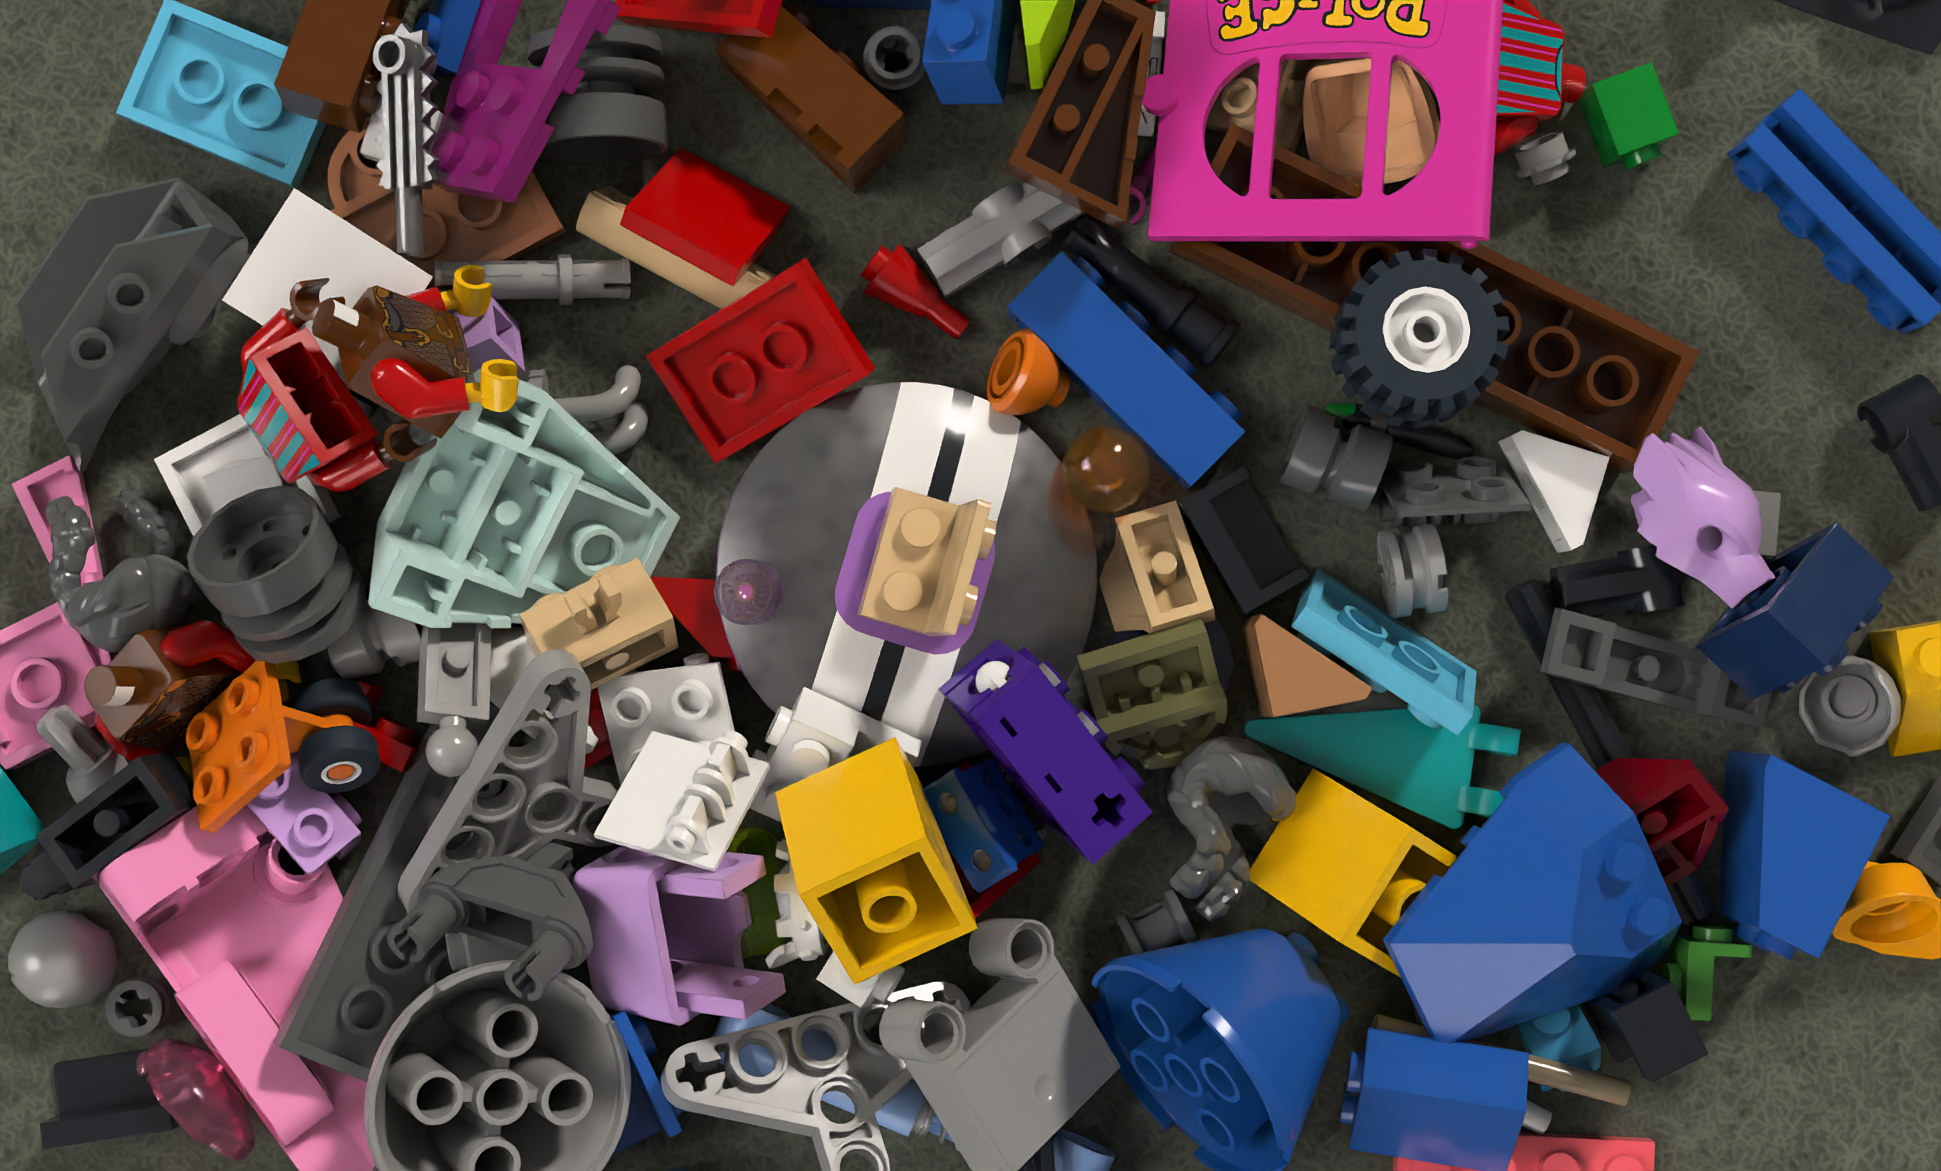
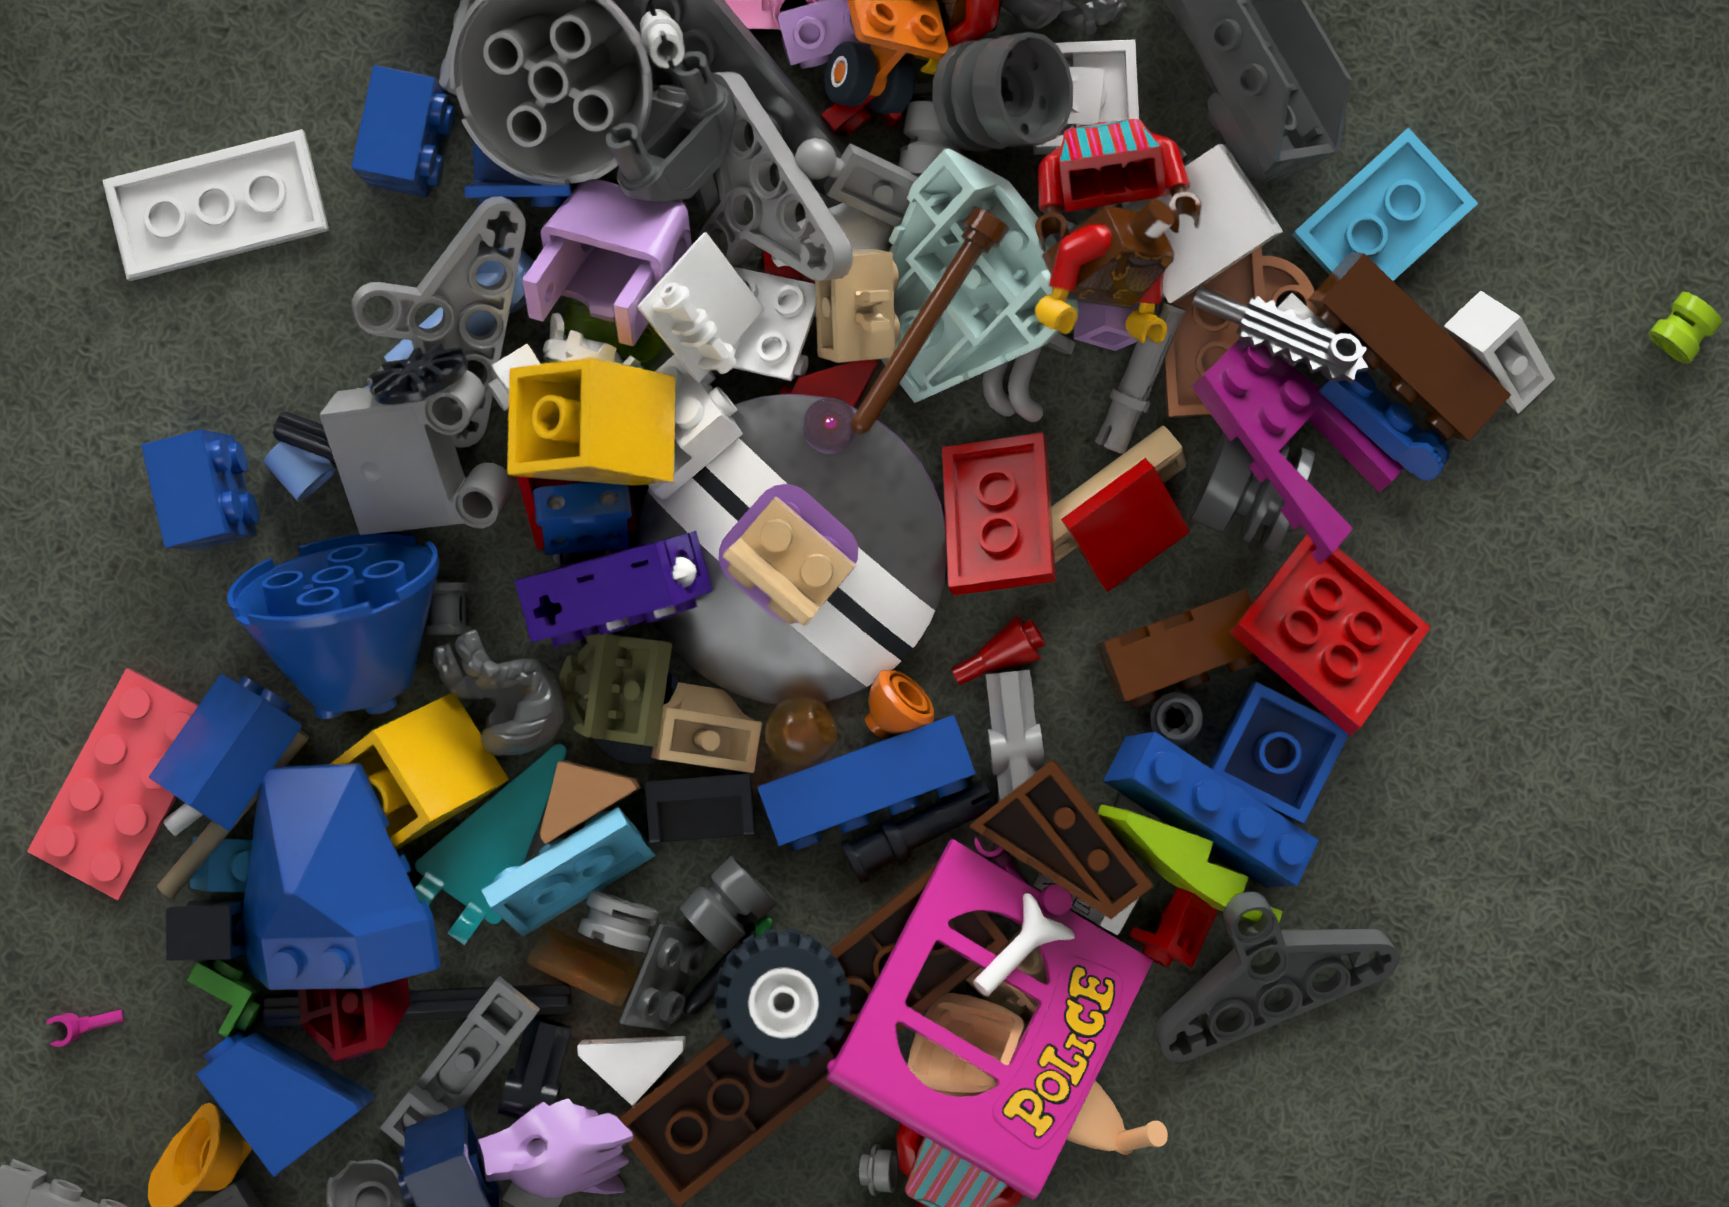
camera: 110 degrees right, 0 degrees up
(393, 989) = (672, 44): none -> white pin
(451, 522) = (980, 234): none -> reddish brown piece
(912, 1085) = (418, 375): none -> black wheel
(1208, 97) = (1034, 932): none -> white piece
(1479, 587) = (583, 966): none -> clear orange slope
(1813, 1121) = (77, 1025): none -> dark pink hand

